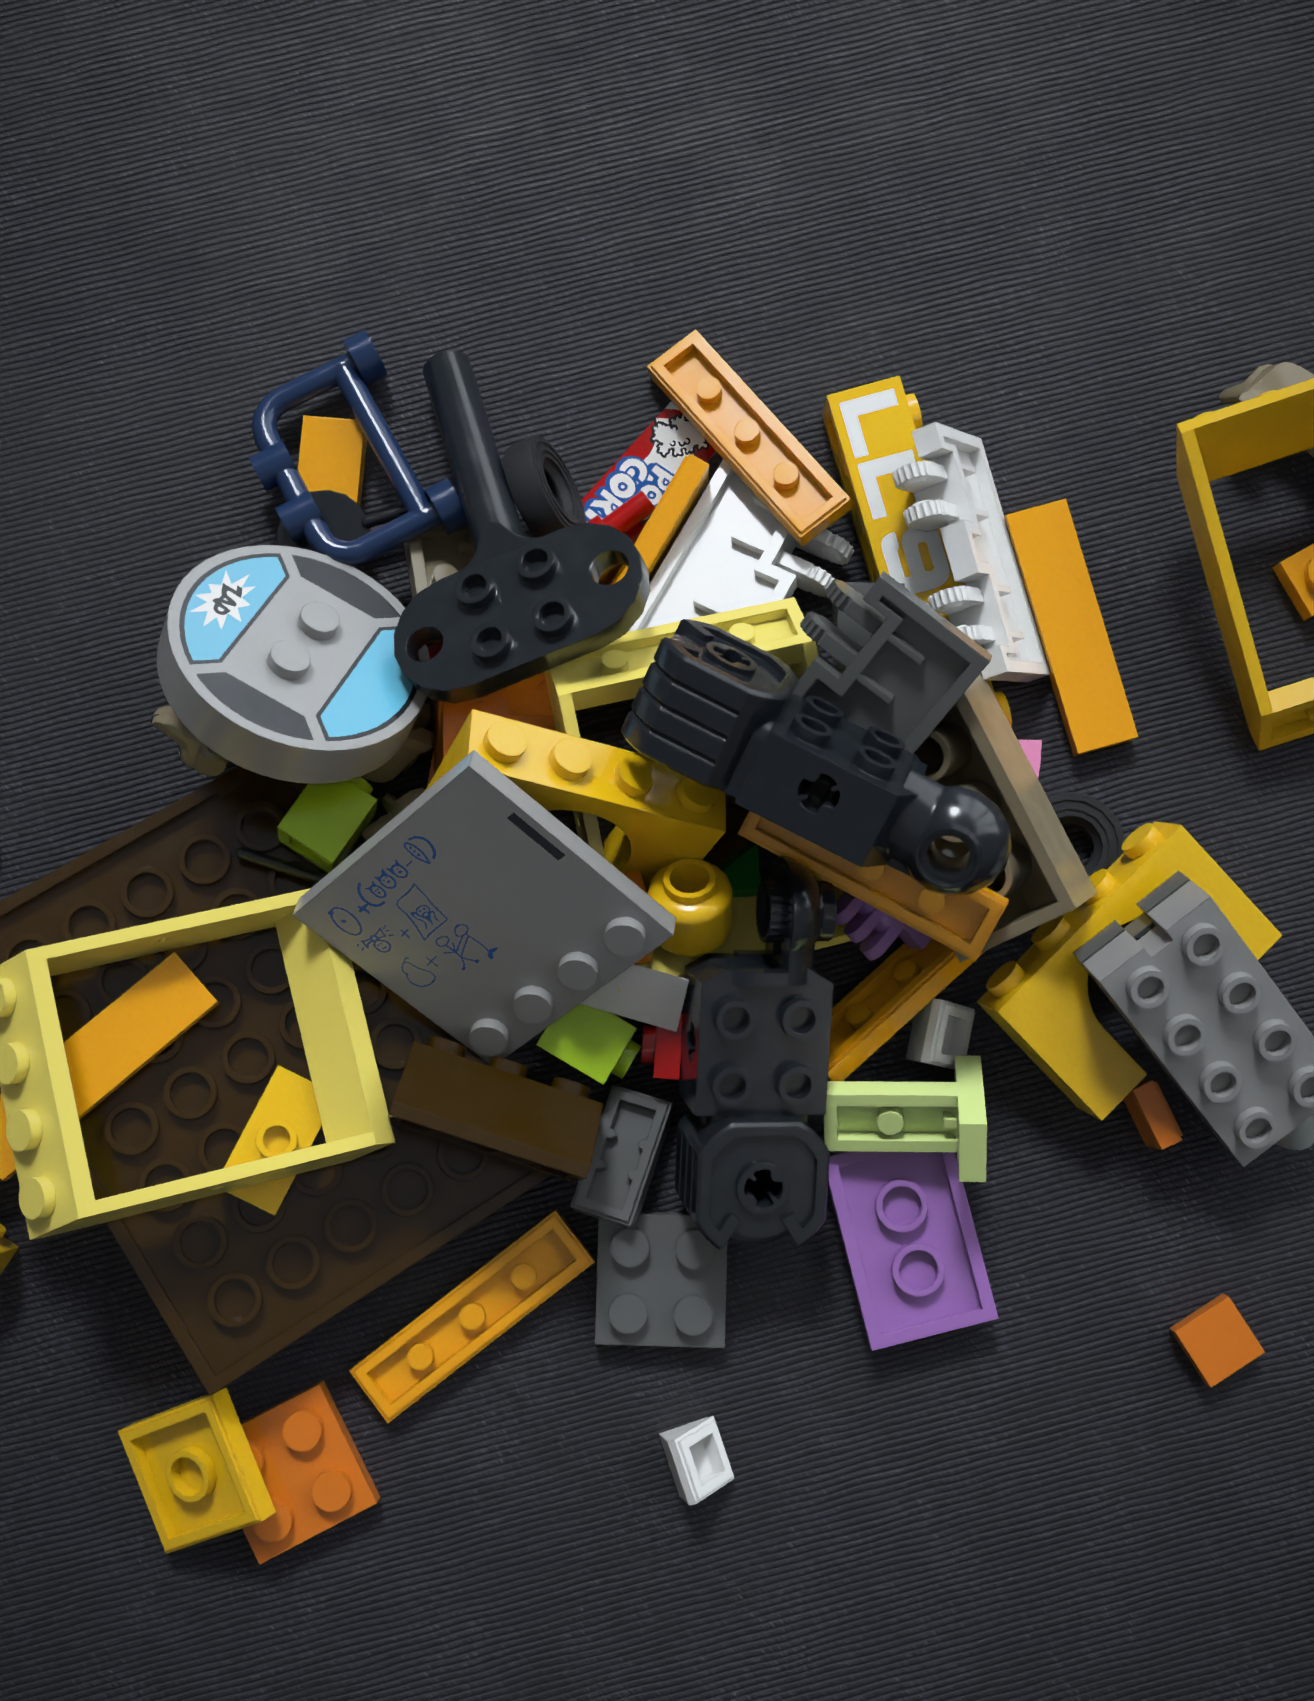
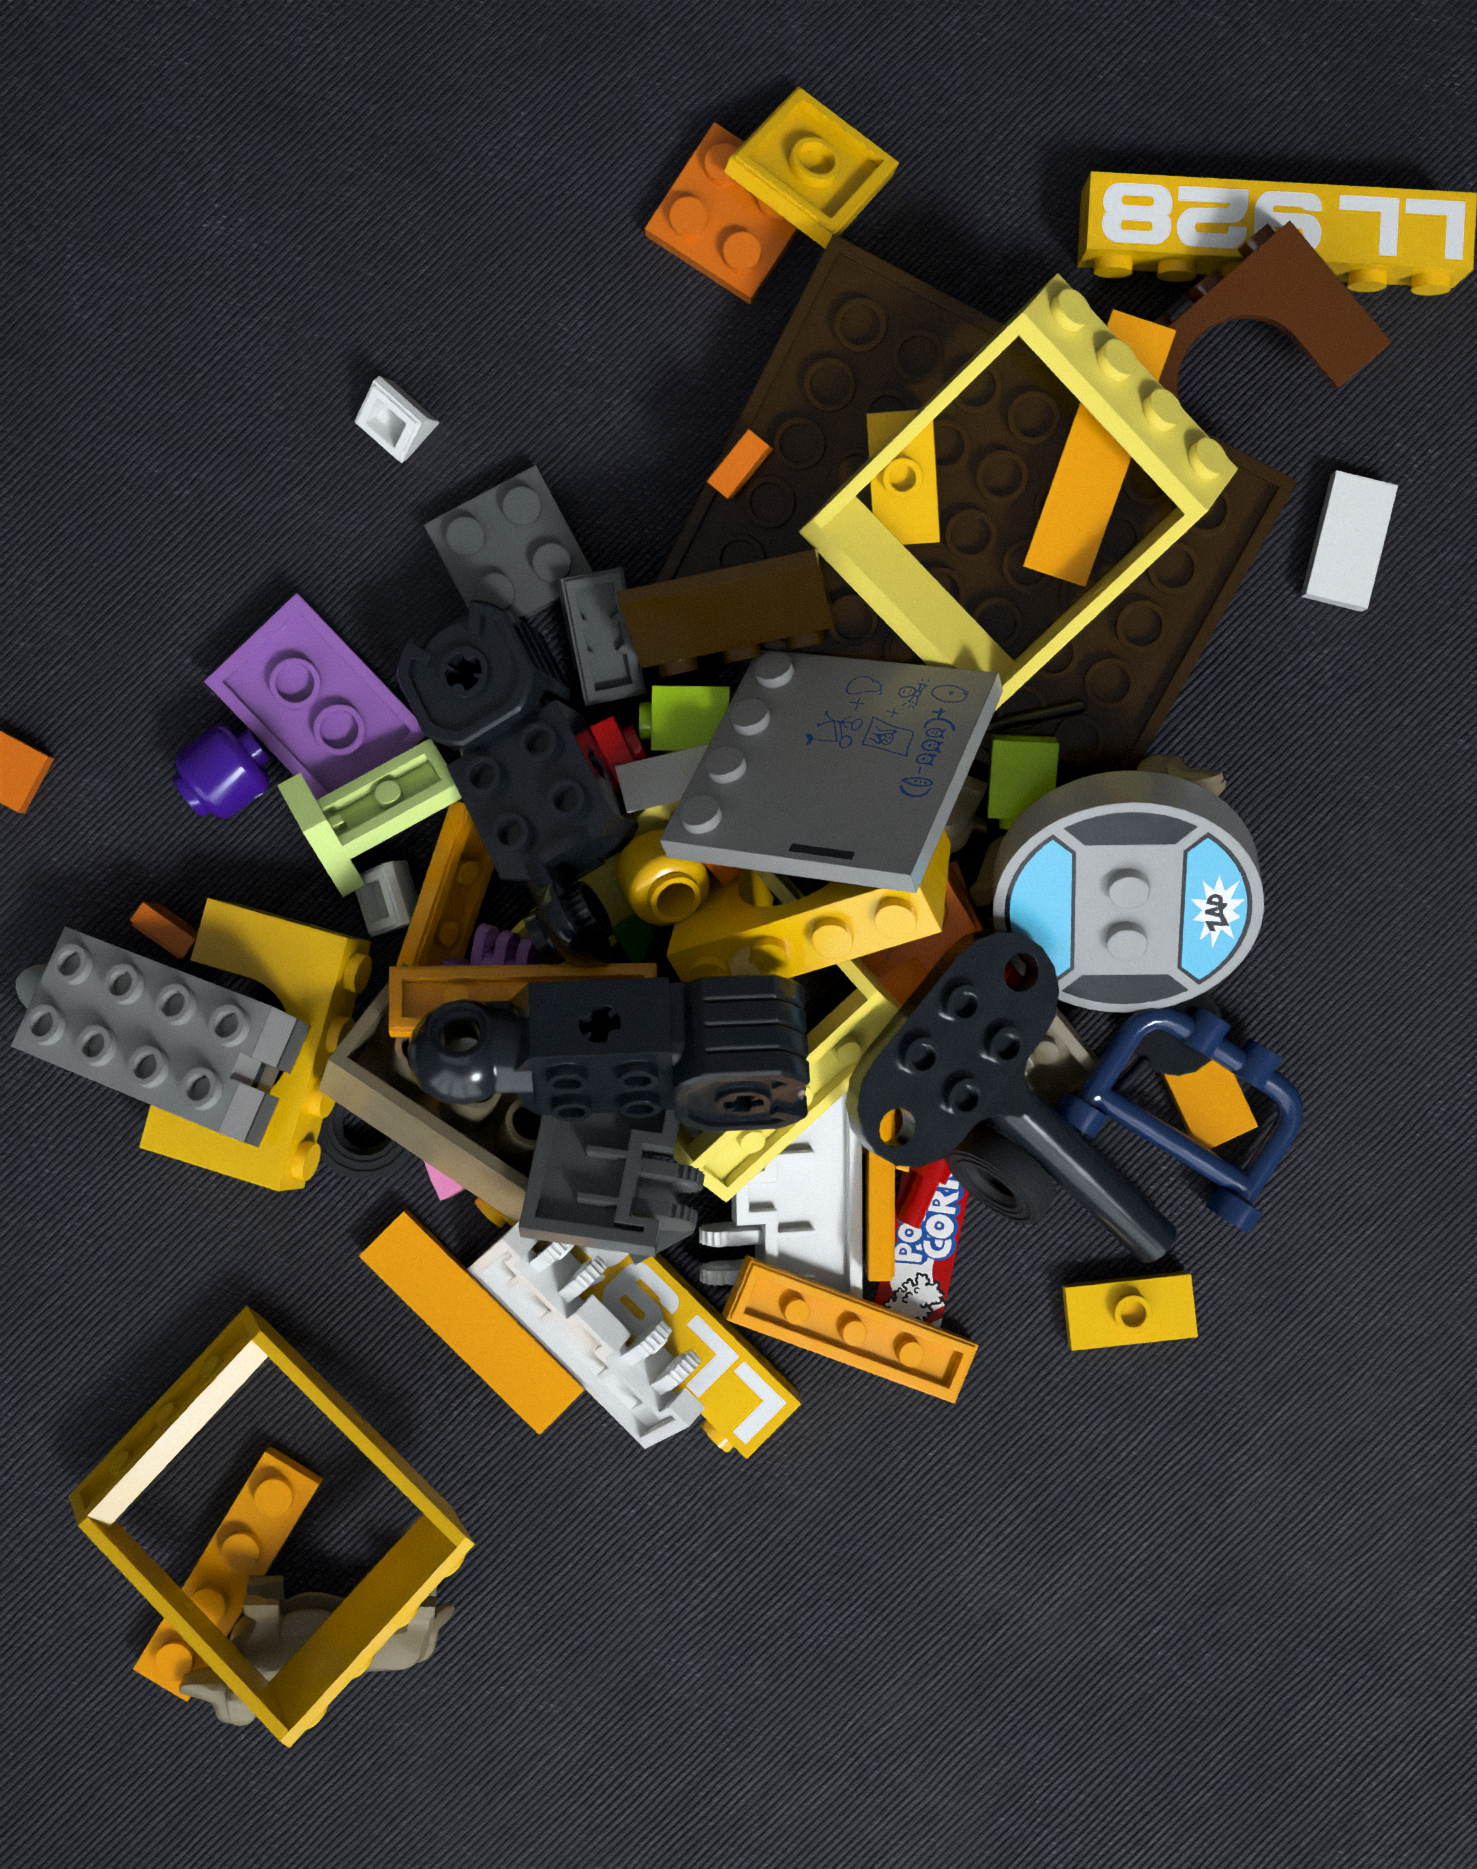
camera: 145 degrees right, 5 degrees up
(413, 1234) = (740, 465): none -> orange tile
(472, 1315) = (654, 430): light orange tile -> none
(502, 324) = (1129, 1310): none -> yellow plate
(1026, 1228) = (222, 771): none -> dark purple head

